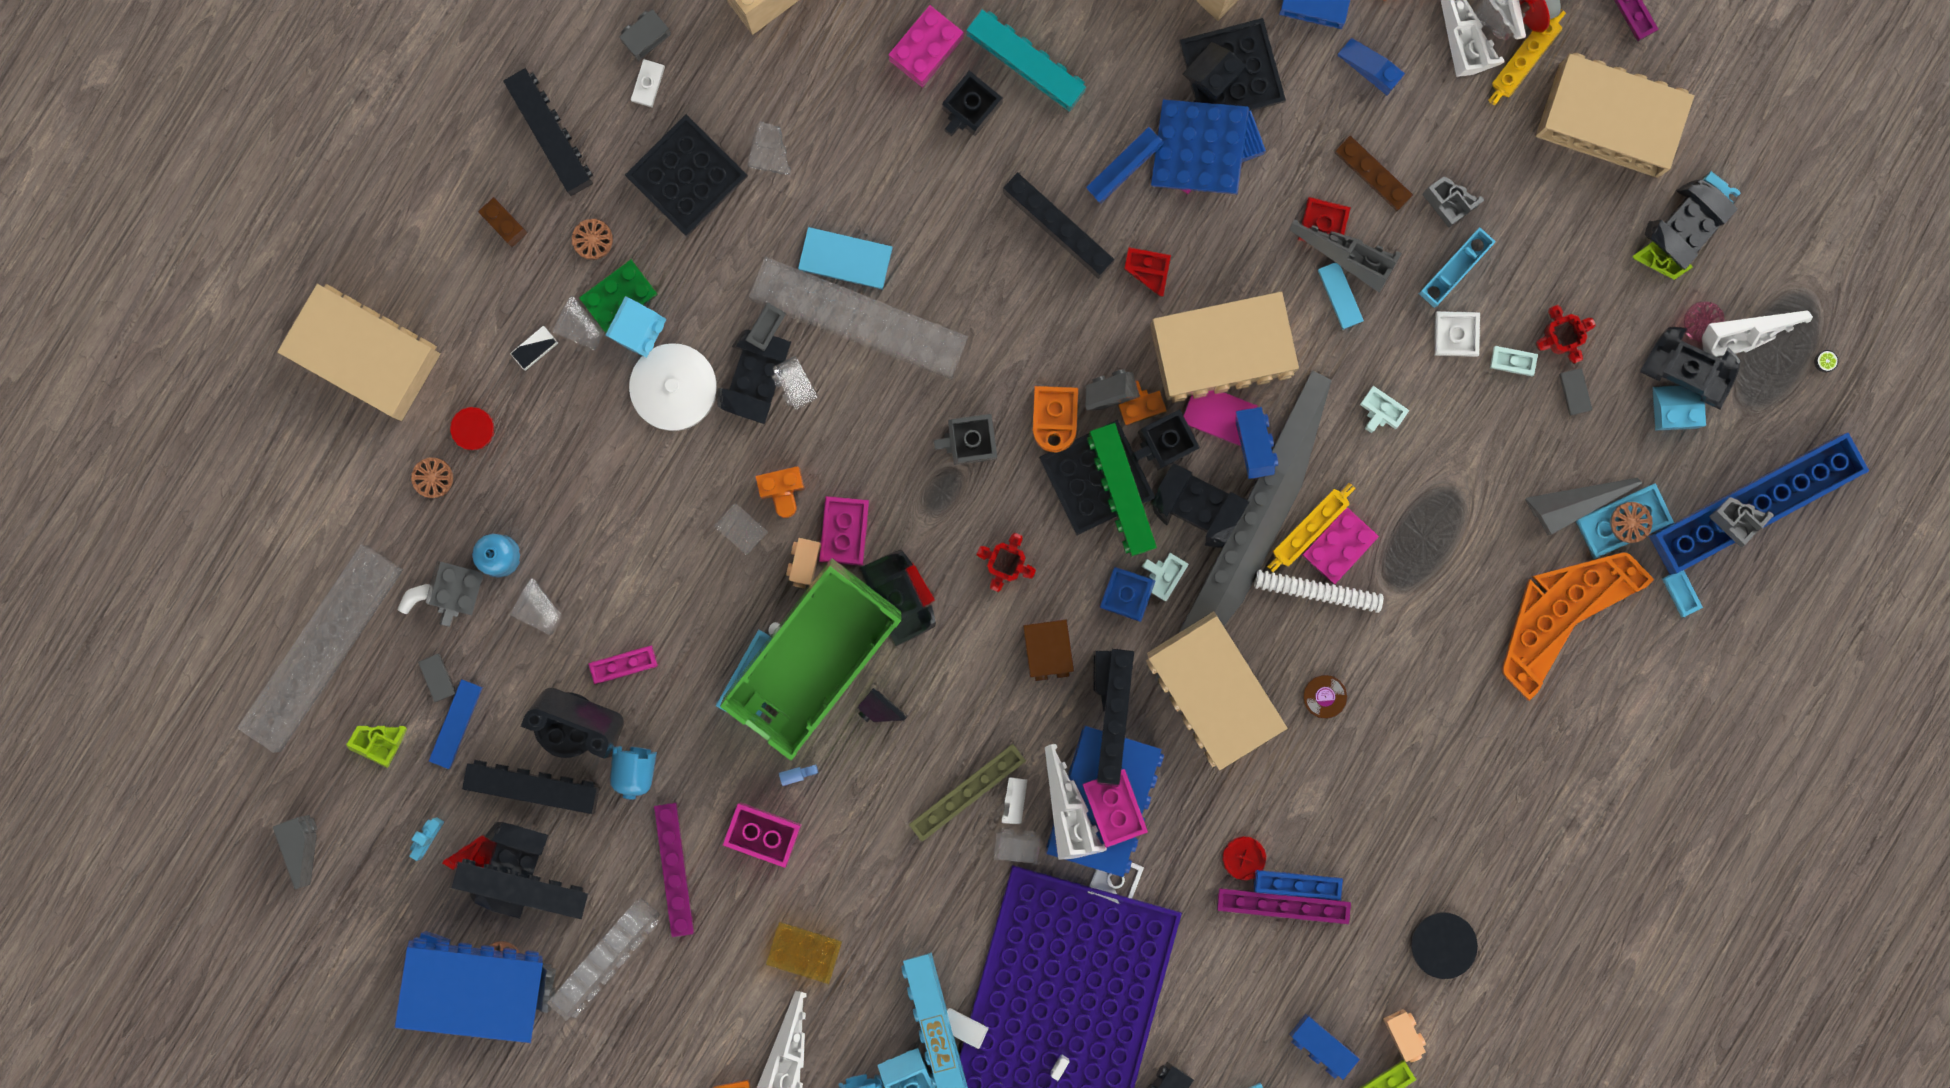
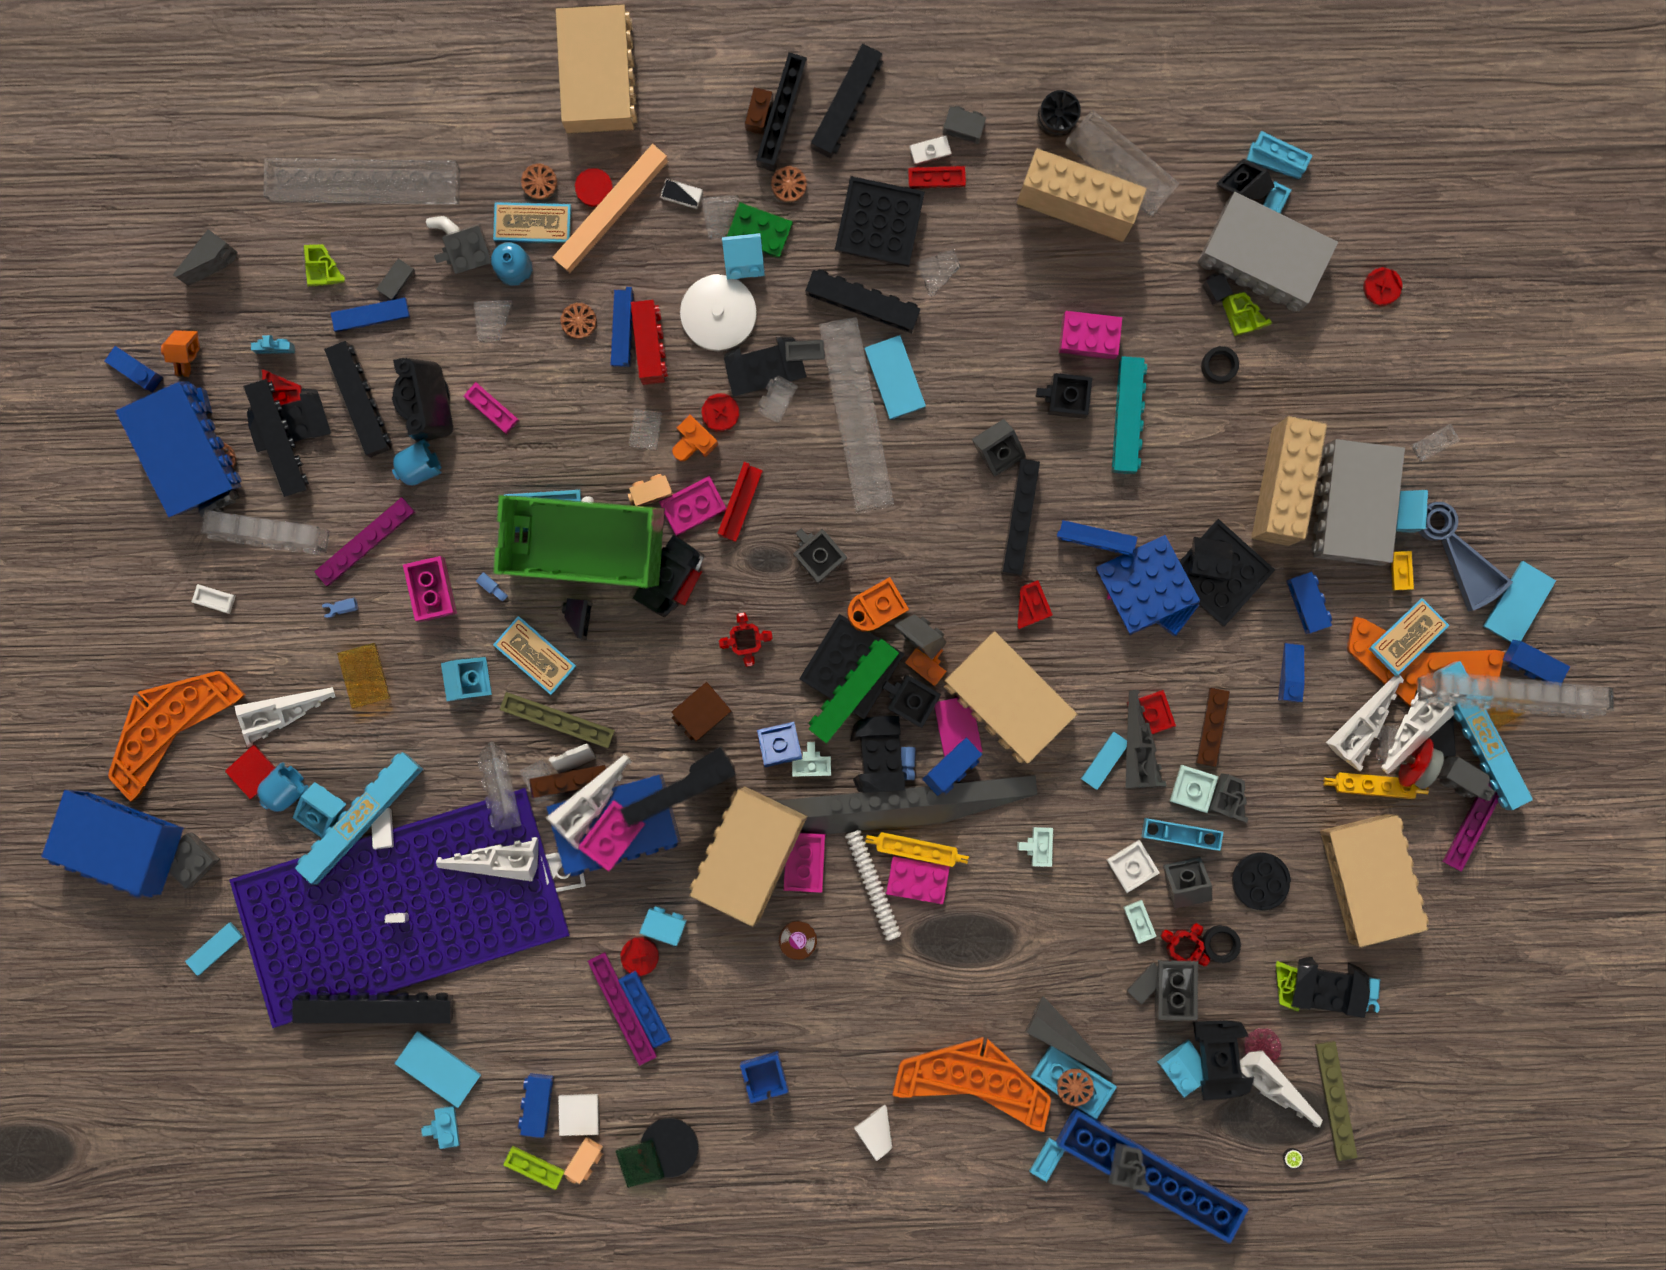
camera: 55 degrees right, 0 degrees up
(358, 989) = (133, 369): none -> blue slope
(372, 929) = (181, 350): none -> orange brick
(468, 510) = (532, 222): none -> tile
(504, 425) = (611, 208): none -> light nougat tile
(518, 200) = (781, 112): none -> black brick
(593, 526) = (578, 320): none -> nougat wheel
(627, 488) = (622, 328): none -> blue fence
(634, 1052) = (213, 599): none -> white tile
(658, 471) = (648, 342): none -> red brick
(678, 94) = (936, 177): none -> red plate
(723, 932) = (341, 607): none -> medium blue bar
(752, 241) = (862, 301): none -> black brick
(770, 446) = (720, 412): none -> red tile
(870, 483) = (740, 502): none -> red fence
(871, 855) = (466, 678): none -> medium azure slope
(890, 775) = (534, 655): none -> tile
(977, 202) = (999, 447): none -> dark grey slope
(997, 889) = (499, 787): none -> clear slope
(1032, 821) = (563, 782): none -> reddish brown plate
(1075, 923) = (511, 861): none -> white wedge
(1223, 482) = (908, 762): none -> medium blue bar
(1230, 815) = (663, 925): none -> medium azure slope
(1258, 642) = (805, 864): none -> dark pink plate
(1358, 1012) = (578, 1115): none -> white tile
(1420, 229) = (1193, 788): none -> light aqua tile
(1433, 809) = (765, 1075): none -> blue piece
(1442, 983) = (639, 1163): none -> clear green tile
(1506, 291) = (1188, 882): none -> dark grey slope
(1548, 222) = (1261, 881): none -> black tile
(1554, 738) = (876, 1132): none -> white slope
(1590, 282) = (1235, 948): none -> black tyre
(1601, 368) = (1176, 990): none -> dark grey slope
(1798, 286) = (1336, 1101): none -> olive plate

